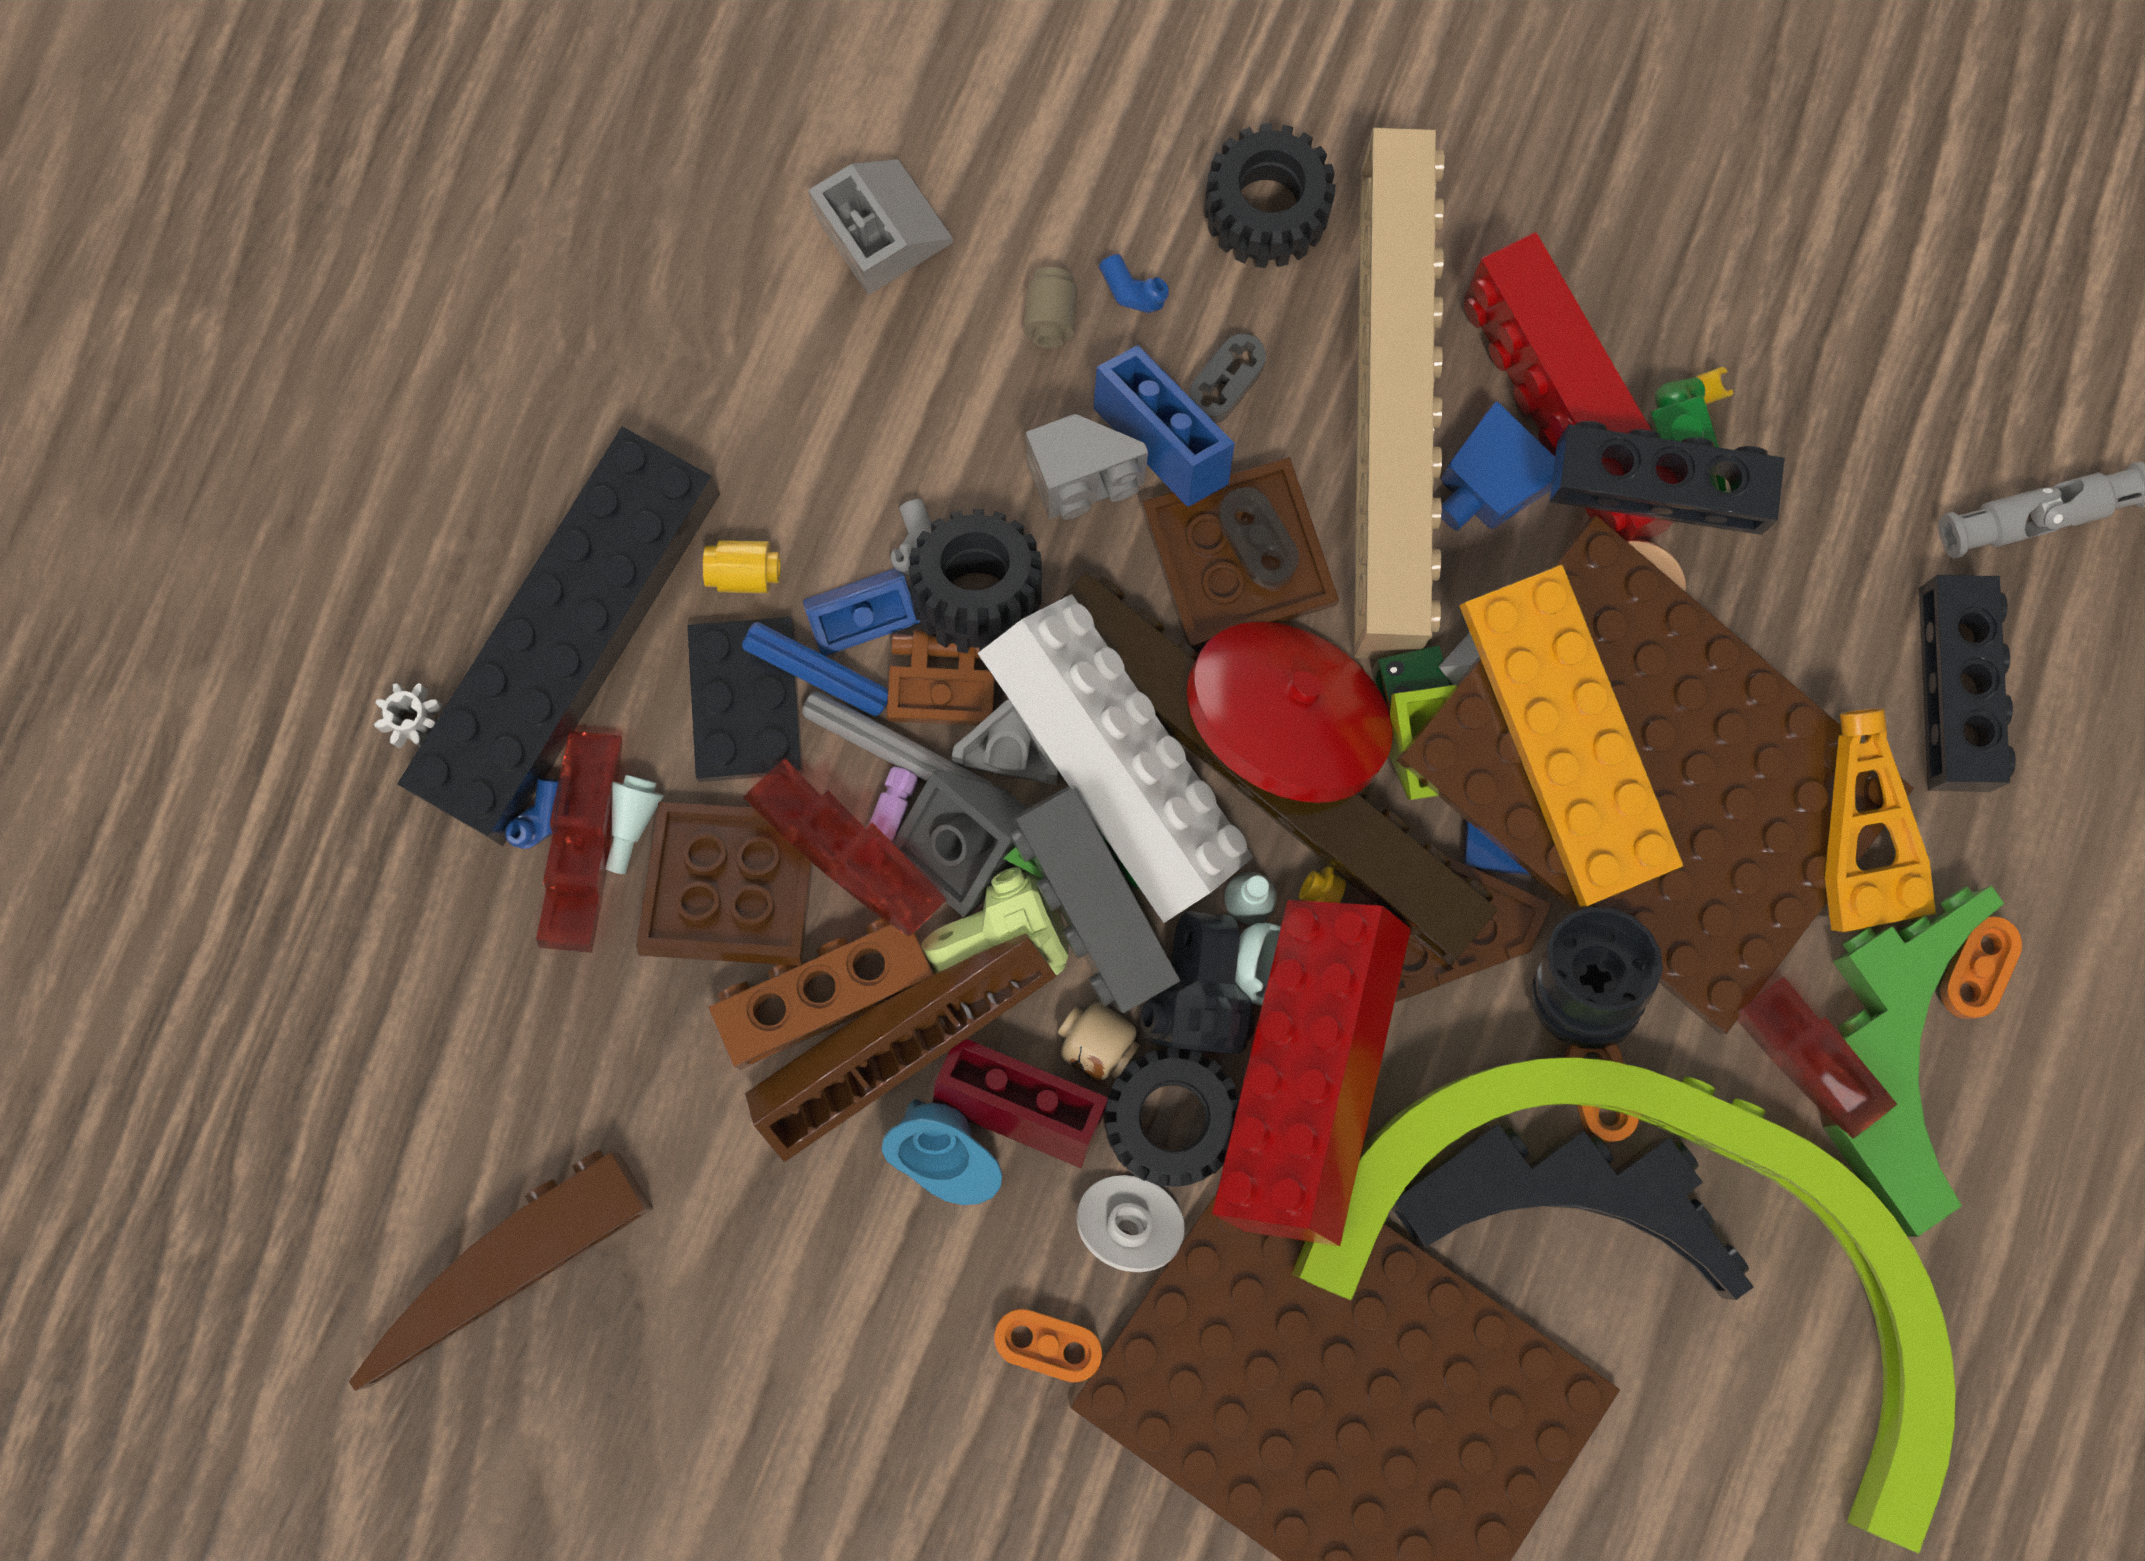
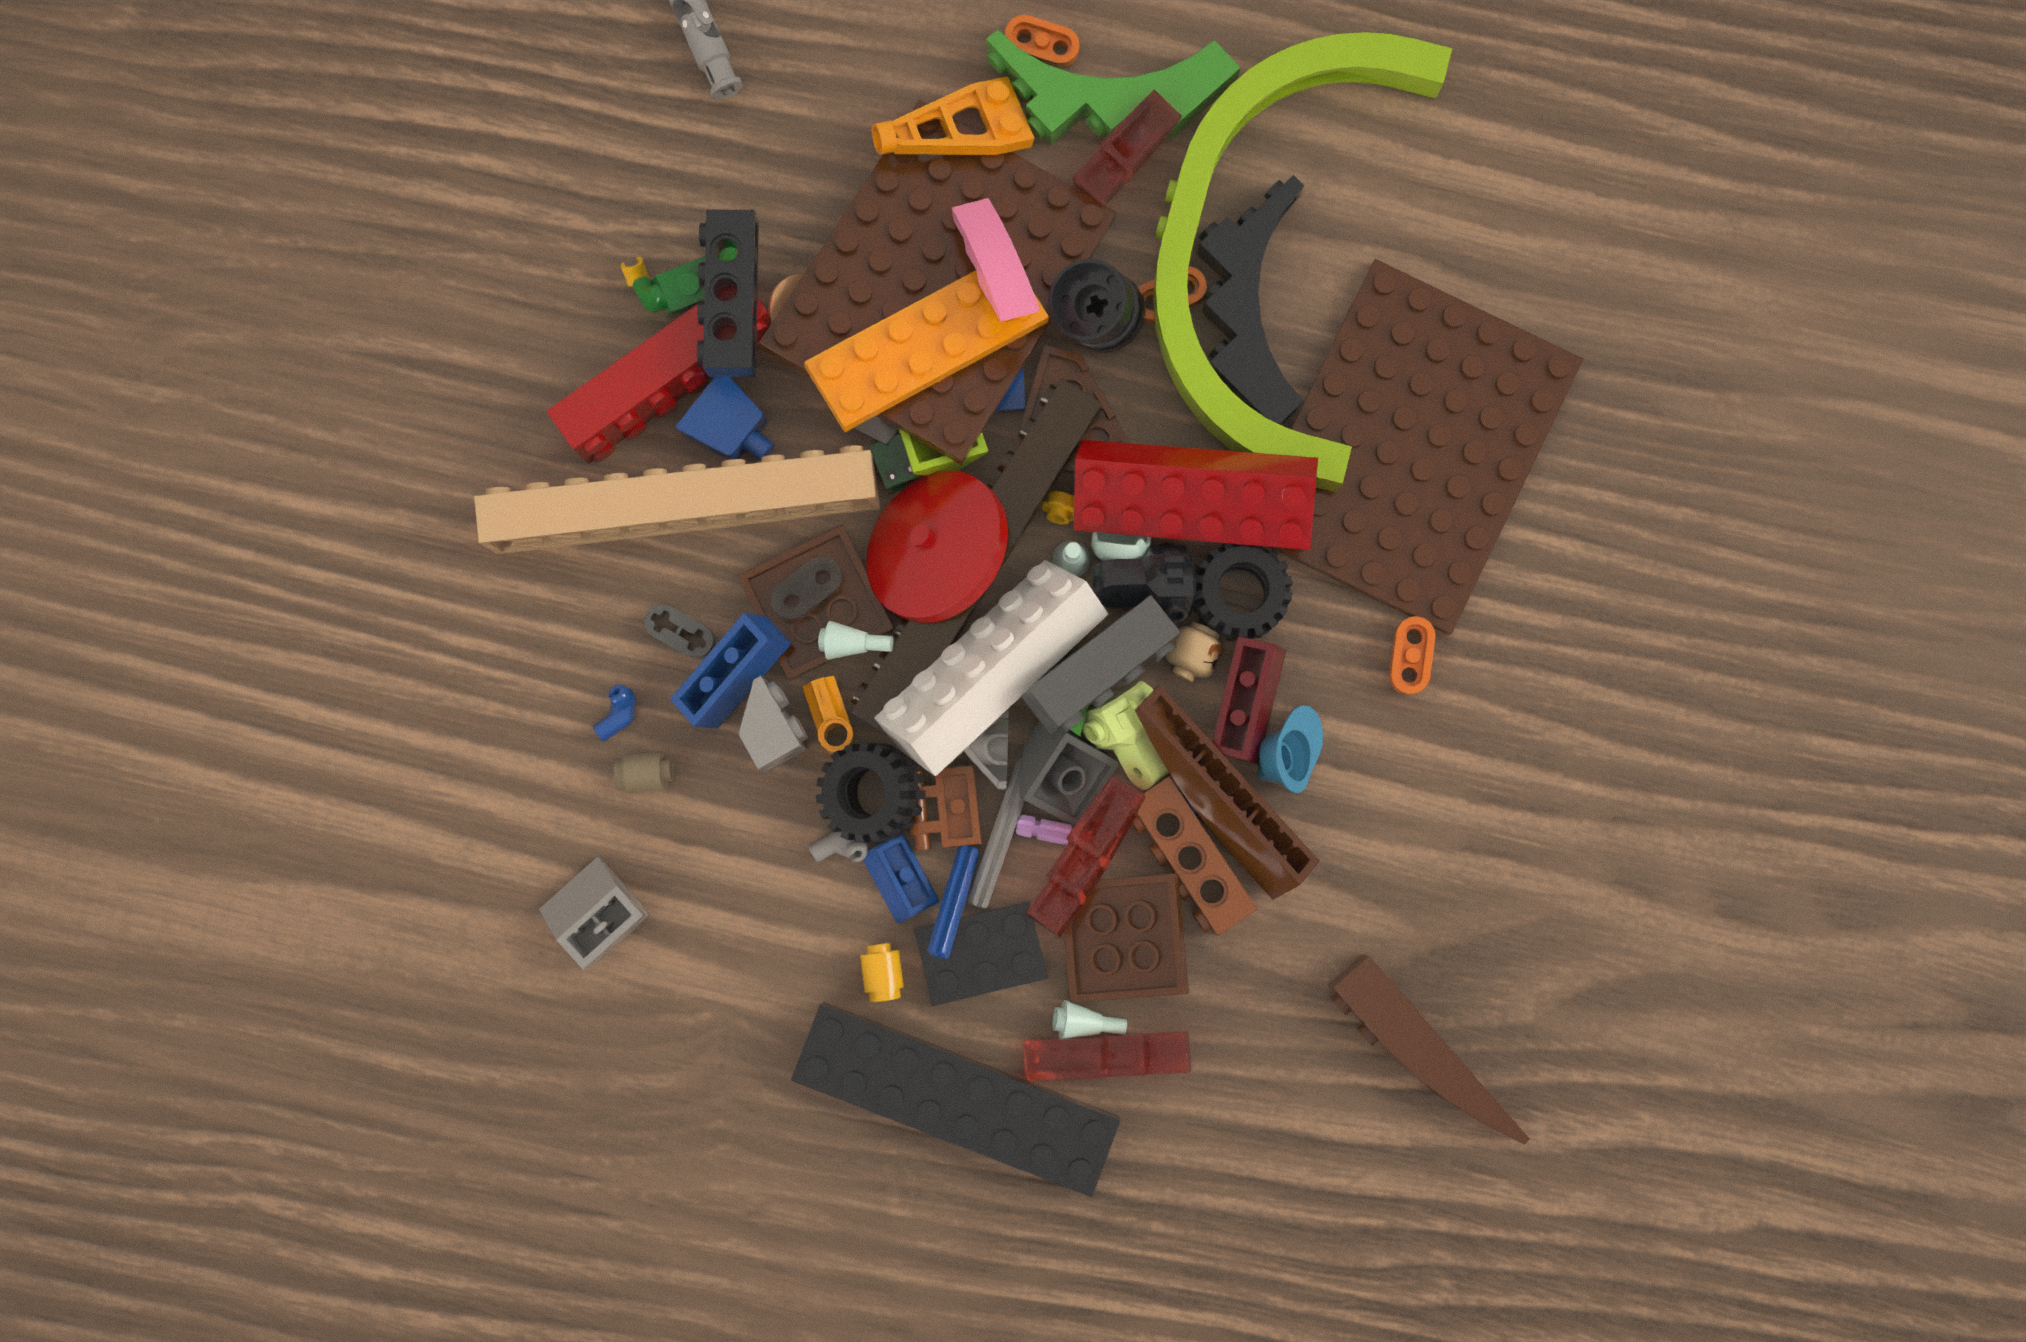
camera: 95 degrees left, 5 degrees up
(406, 701) = (1027, 1194): white gear -> none
(534, 823) = (1096, 1091): blue arm -> none
(1092, 548) = (828, 711): none -> light orange piece
(1132, 1206) = (1309, 600): white dish -> none
(1181, 571) = (842, 641): none -> light aqua cone
(1276, 158) = (506, 600): black tyre -> none
(1673, 838) = (995, 260): none -> bright pink slope
(1950, 758) = (854, 81): black brick -> none

